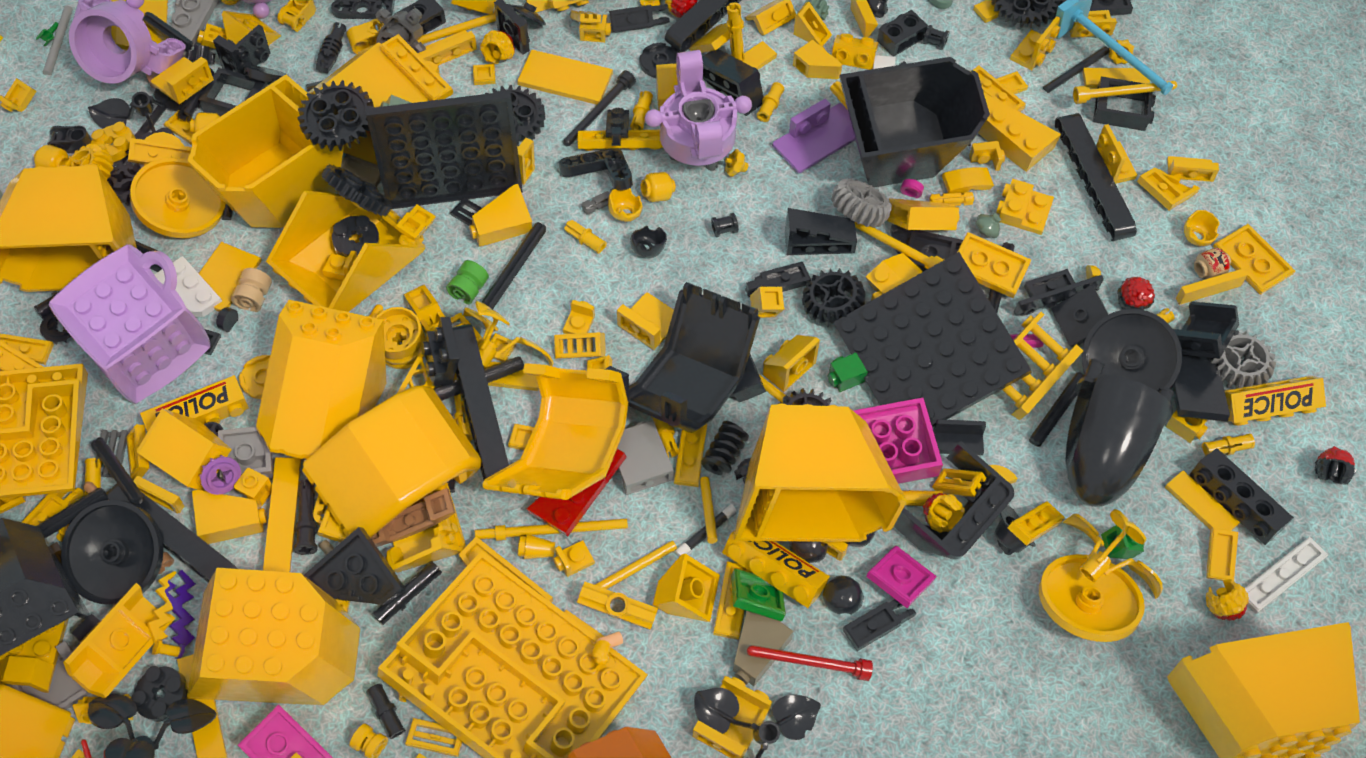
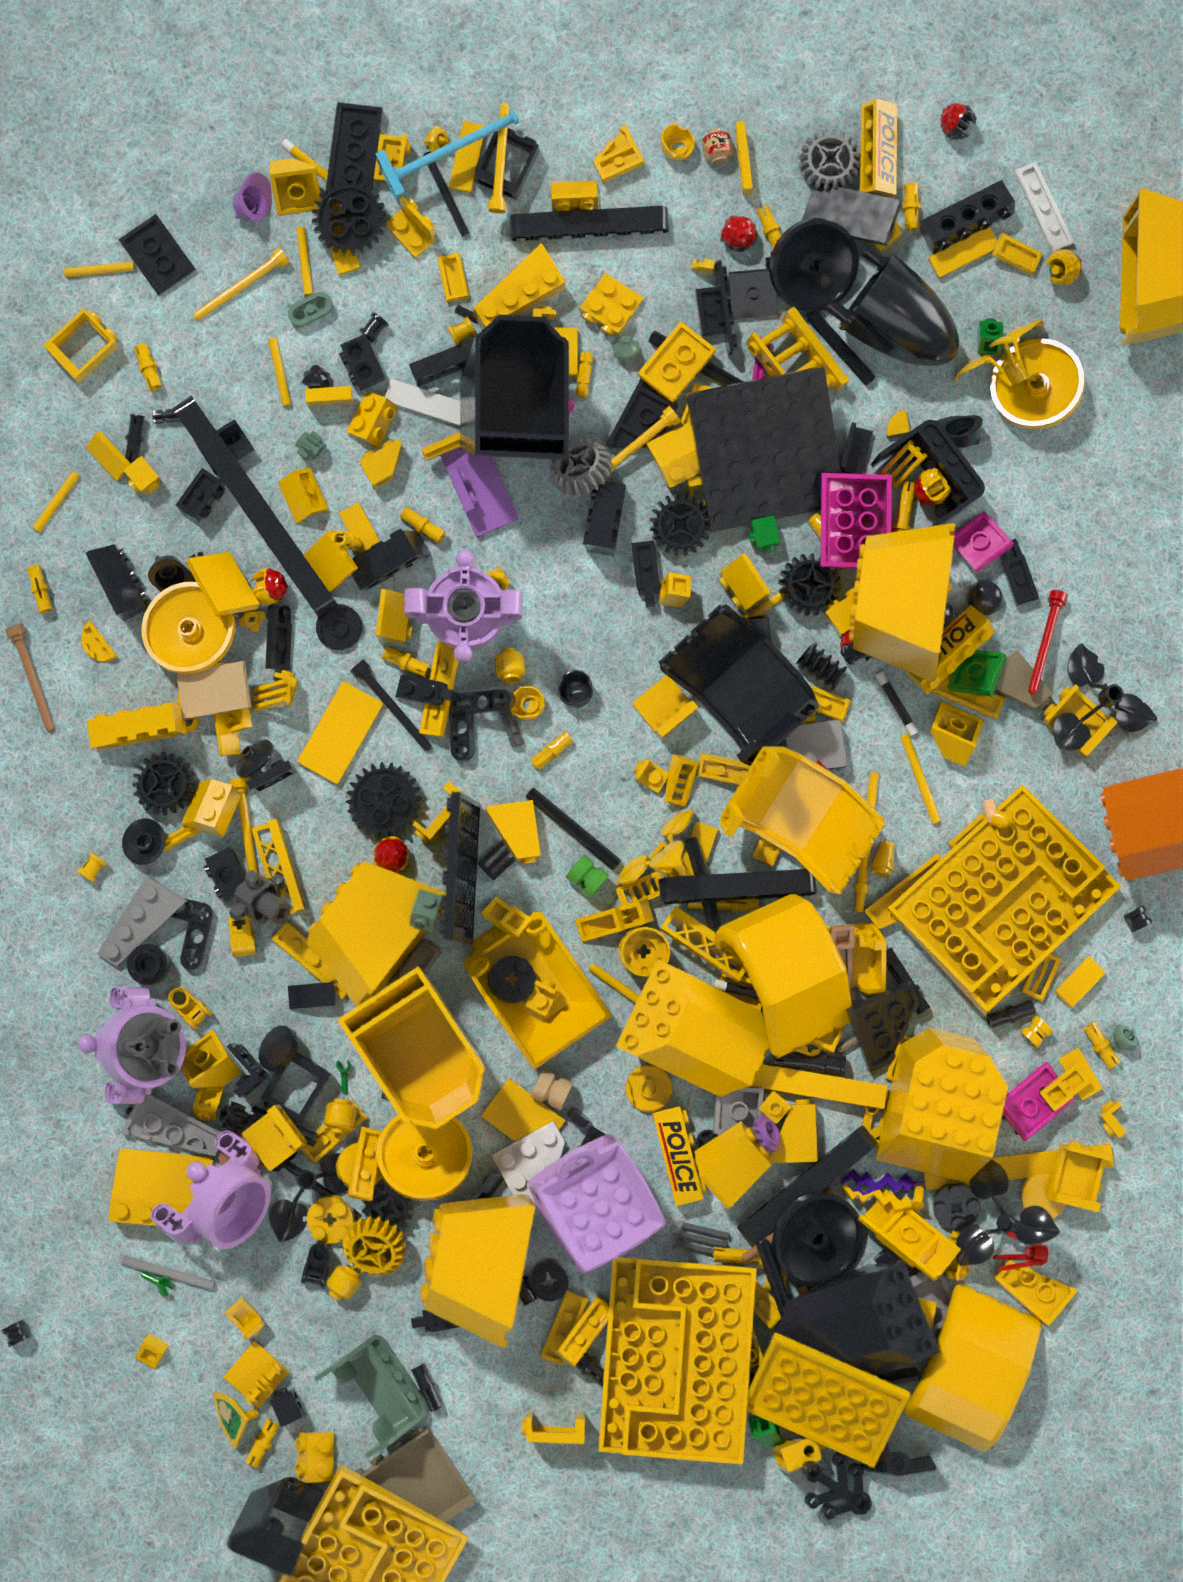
camera: 75 degrees left, 25 degrees up
(117, 471) = (735, 1230): black axle -> none
(137, 463) = (709, 1212): yellow tile -> none
(159, 495) = (761, 1196): yellow tile -> none
(166, 30) = (193, 1150): black axle -> none
(330, 48) = (249, 977): black hinge -> none
(335, 115) = (436, 967): black gear -> none
(357, 190) = (478, 967): black gear -> none
(416, 69) = (368, 883): yellow tile -> none
(441, 353) = (687, 911): black plate -> none
(484, 74) = (317, 818): yellow tile -> none
(497, 46) = (291, 797): yellow piece -> none
(573, 558) = (900, 827): yellow bracket -> none
(600, 600) = (950, 809): yellow piece -> none
(708, 510) = (879, 696): yellow bar -> none
(724, 224) = (569, 609): black bush -> none
(810, 26) = (334, 455): yellow slope -> none
(923, 215) = (606, 410): yellow slope -> none
(998, 91) = (463, 290): yellow tile -> none
(1036, 523) = (959, 408): yellow tile -> none
(1192, 168) = (597, 122): yellow panel -> none
(1208, 329) = (797, 184): black panel -> none
(1258, 259) = (716, 103): yellow tile -> none

